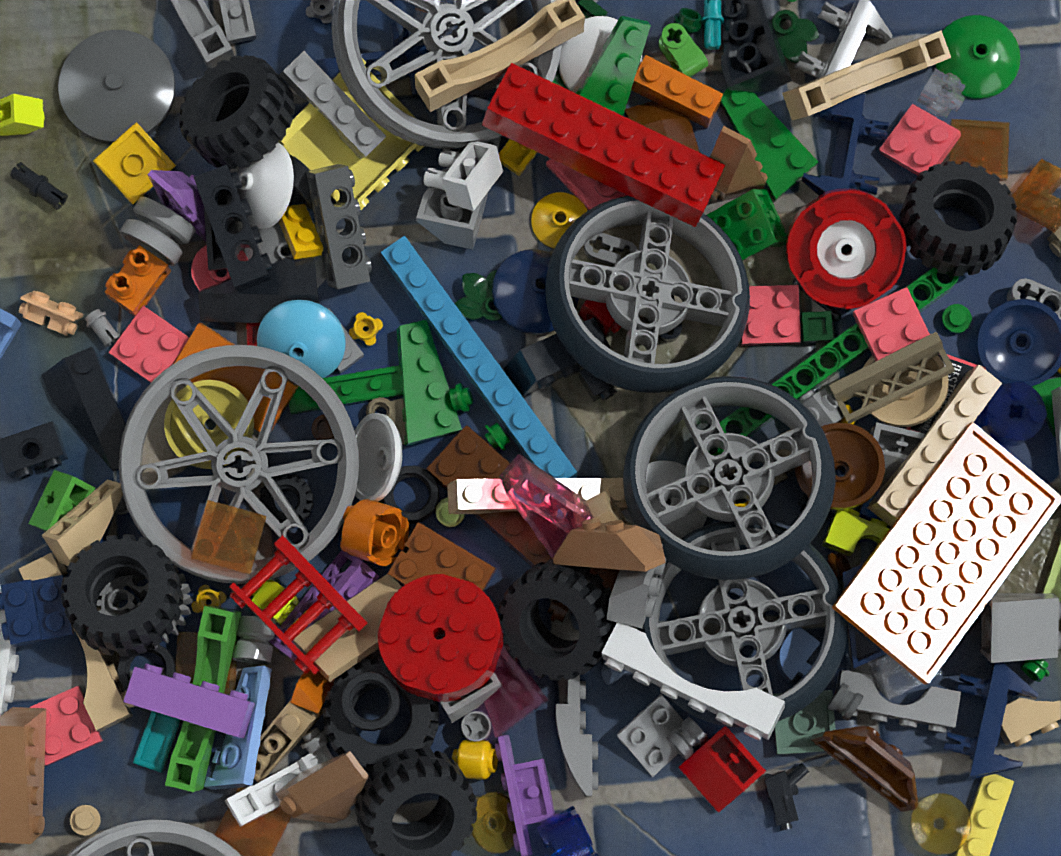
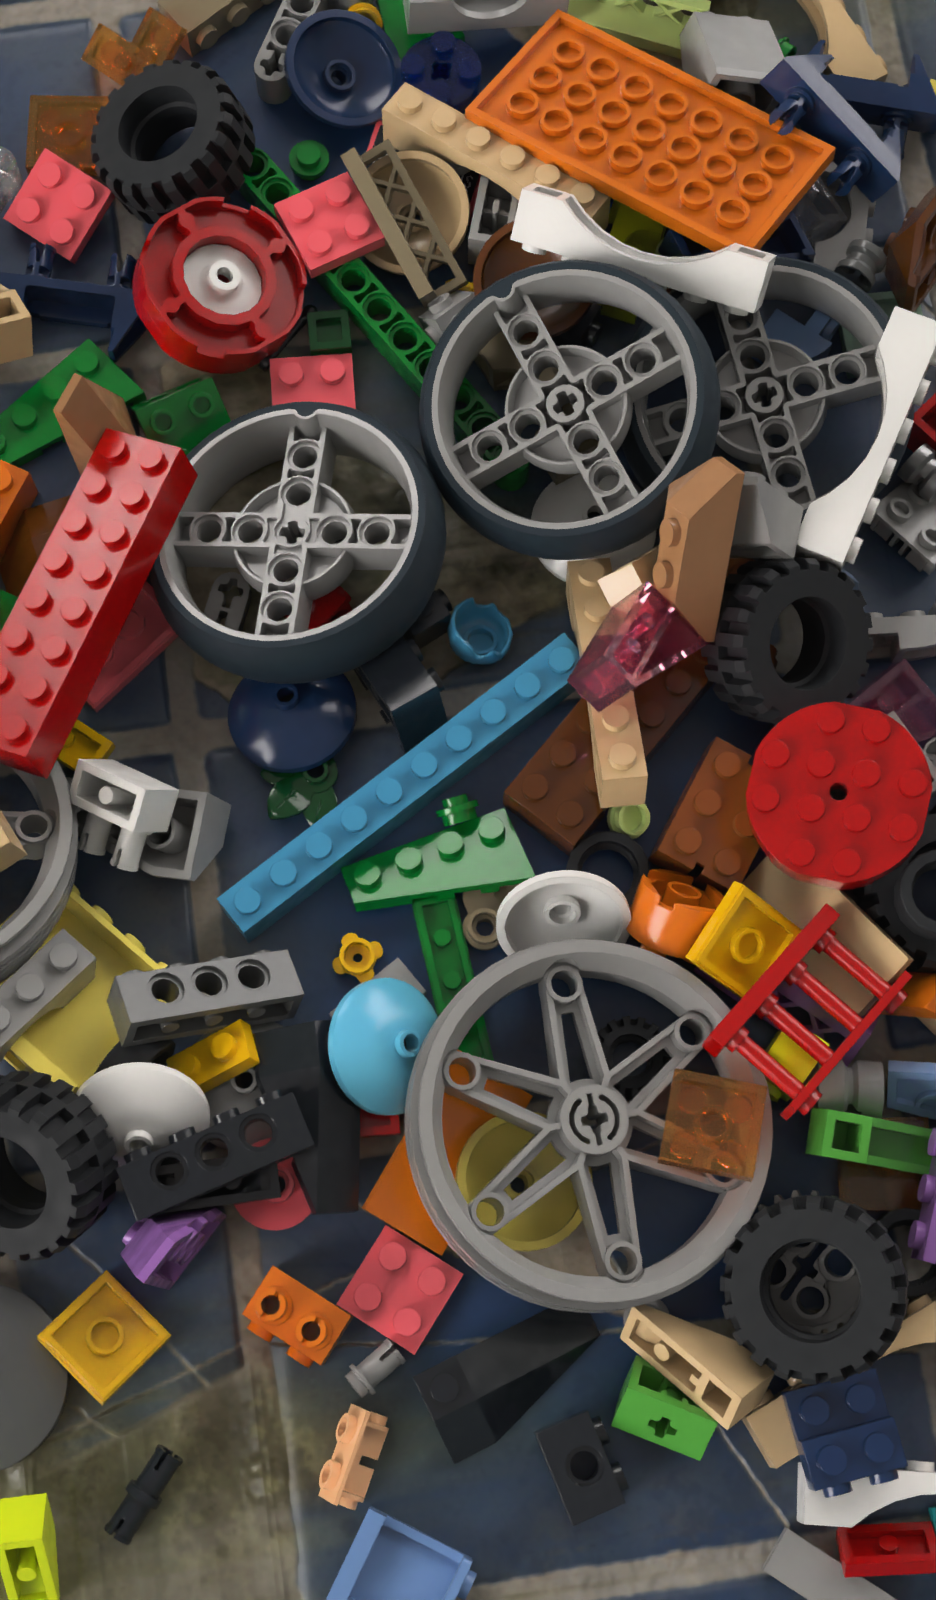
camera: 90 degrees left, 5 degrees down
(157, 230) = (214, 1282): light grey wheel -> none
(206, 593) = (780, 1172): yellow plate -> none
(321, 429) = (516, 1009): reddish brown plate -> none
(351, 570) = (741, 940): none -> yellow tile
(497, 436) = (512, 755): green plate -> none
(543, 216) = (186, 706): yellow dish -> none
(585, 418) = (479, 632): none -> dark azure hair
(866, 479) = (559, 224): none -> white arch
(932, 708) = (825, 114): none -> dark blue hose

